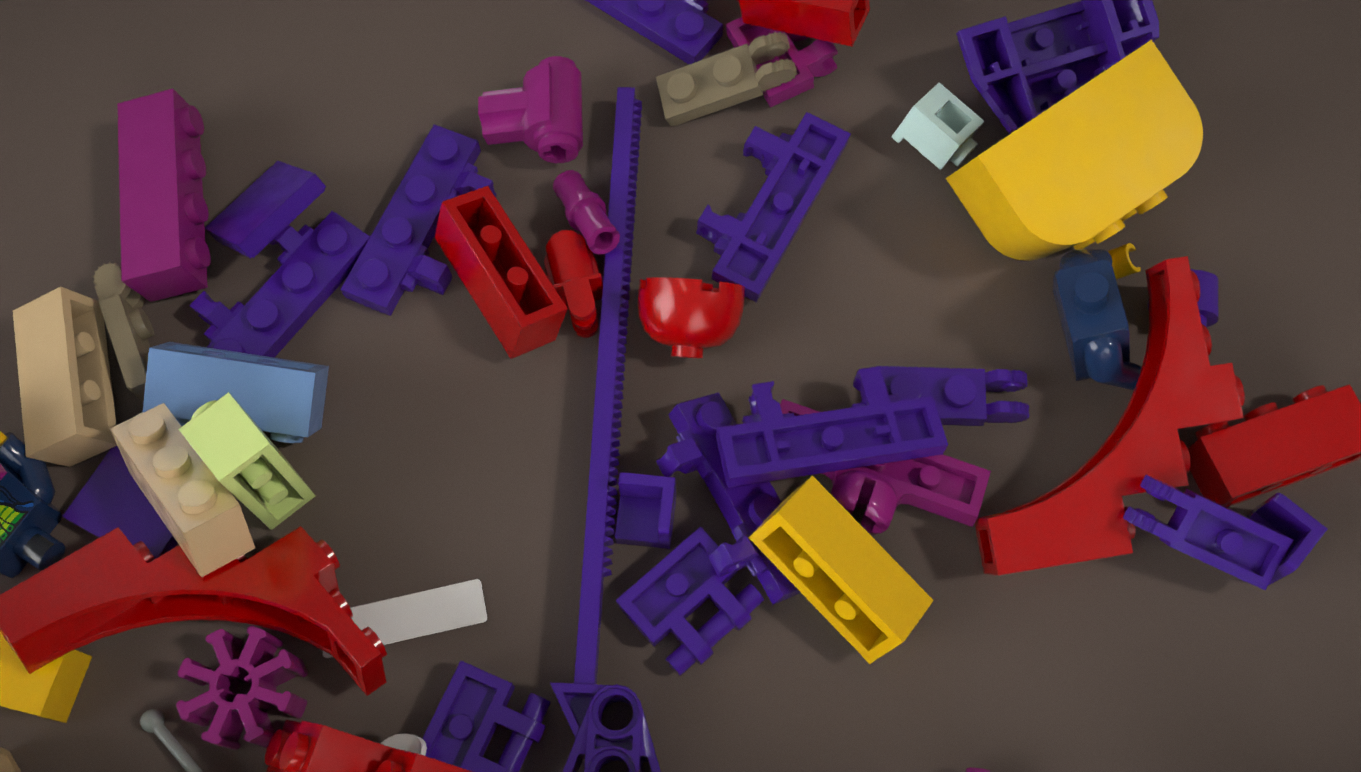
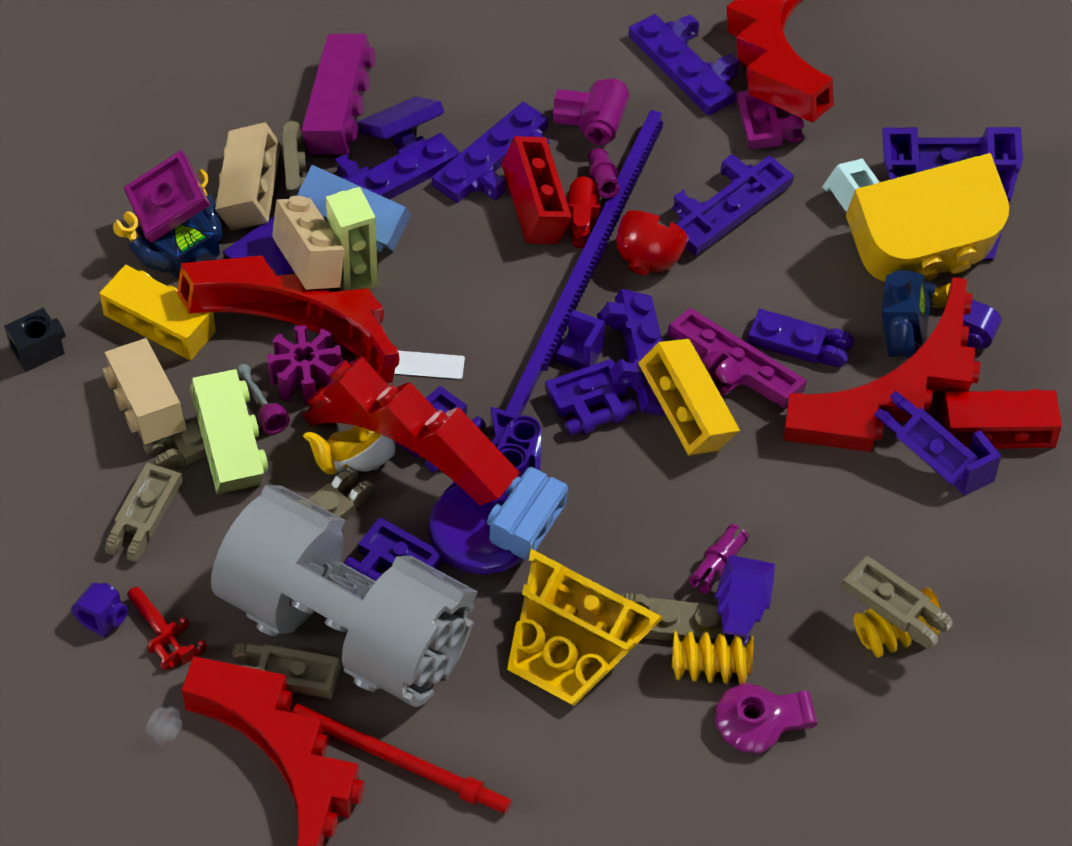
camera: 15 degrees right, 15 degrees down
(724, 79) = (723, 123): dark tan hinge -> none
(867, 434) = (710, 329): dark purple hinge -> none

